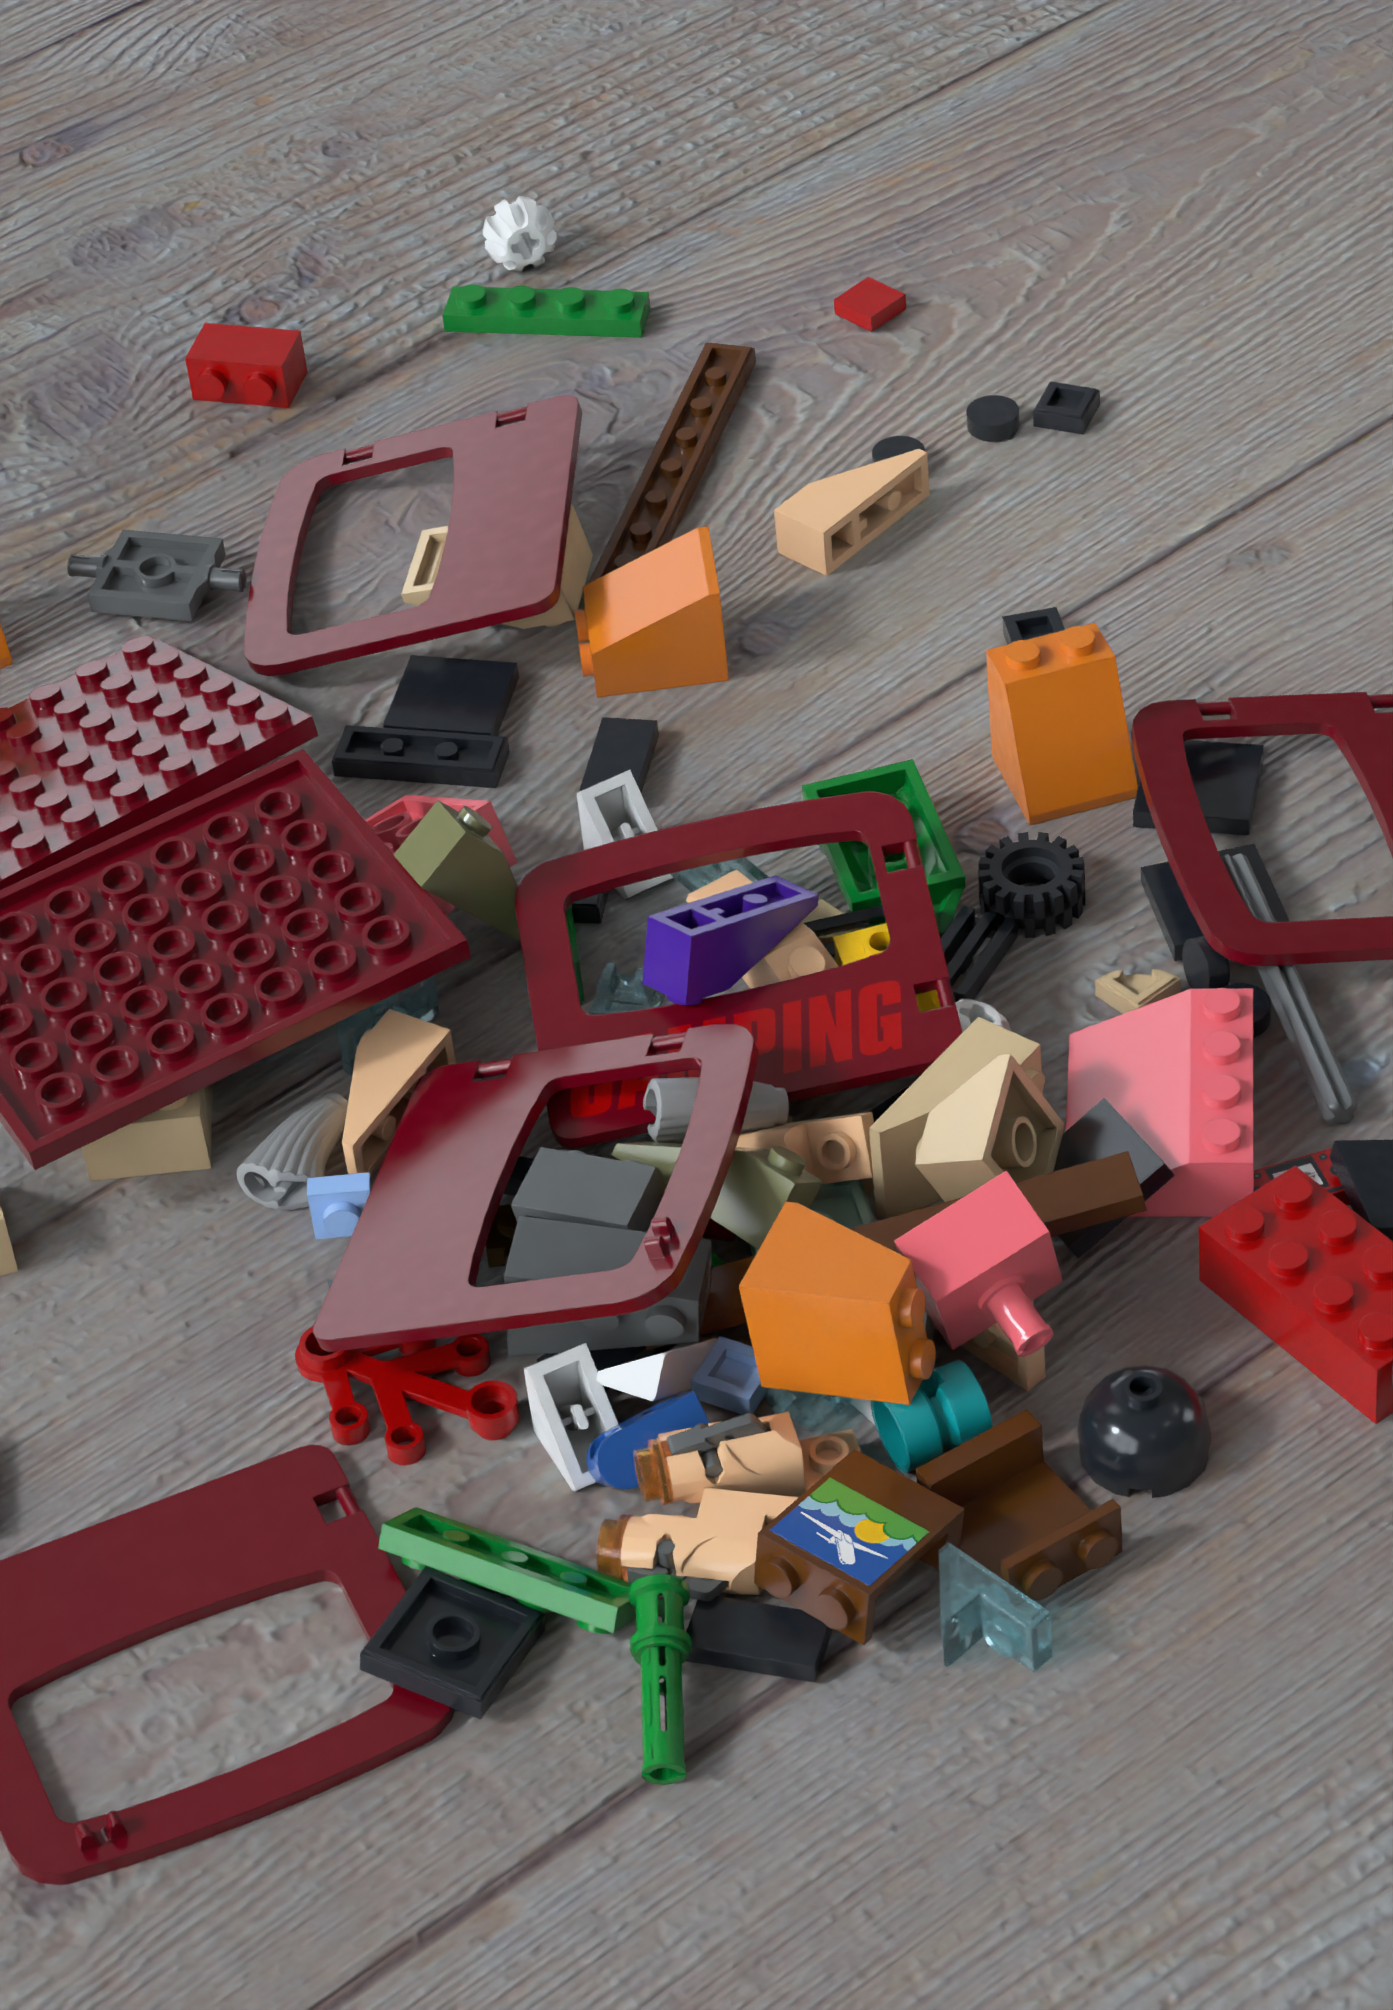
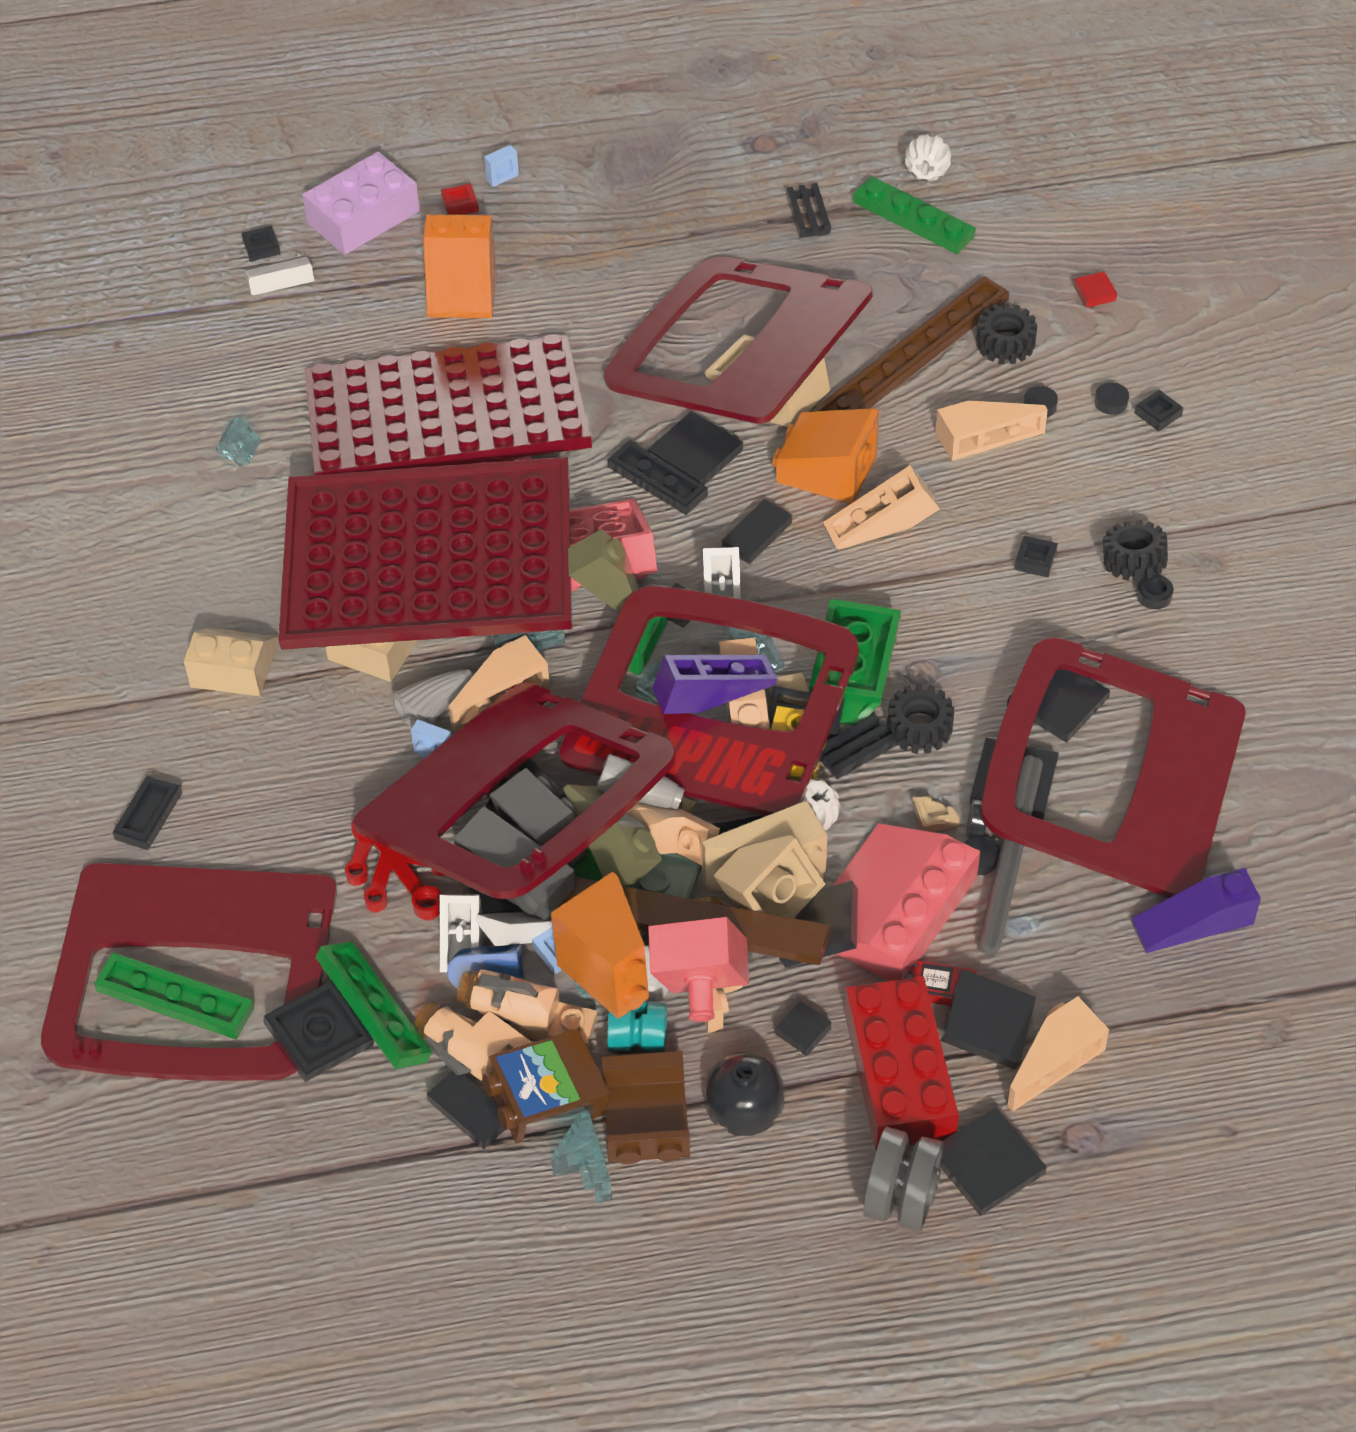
camera: 25 degrees right, 10 degrees up
(156, 574) = (594, 296): dark grey plate -> none
(189, 1700) = (174, 995): none -> green plate
(246, 365) = (727, 180): red brick -> none
(398, 357) = (805, 194): none -> black tile
(660, 1653) = (409, 1092): green pin -> none
(787, 661) = (883, 511): none -> light nougat slope
(791, 396) = (1006, 346): none -> black tyre
(1060, 723) = (995, 626): orange slope -> none
(1161, 1320) = (803, 1028): none -> black tile
(1170, 570) = (1135, 550): none -> black tyre
(1228, 613) = (1155, 592): none -> black tile

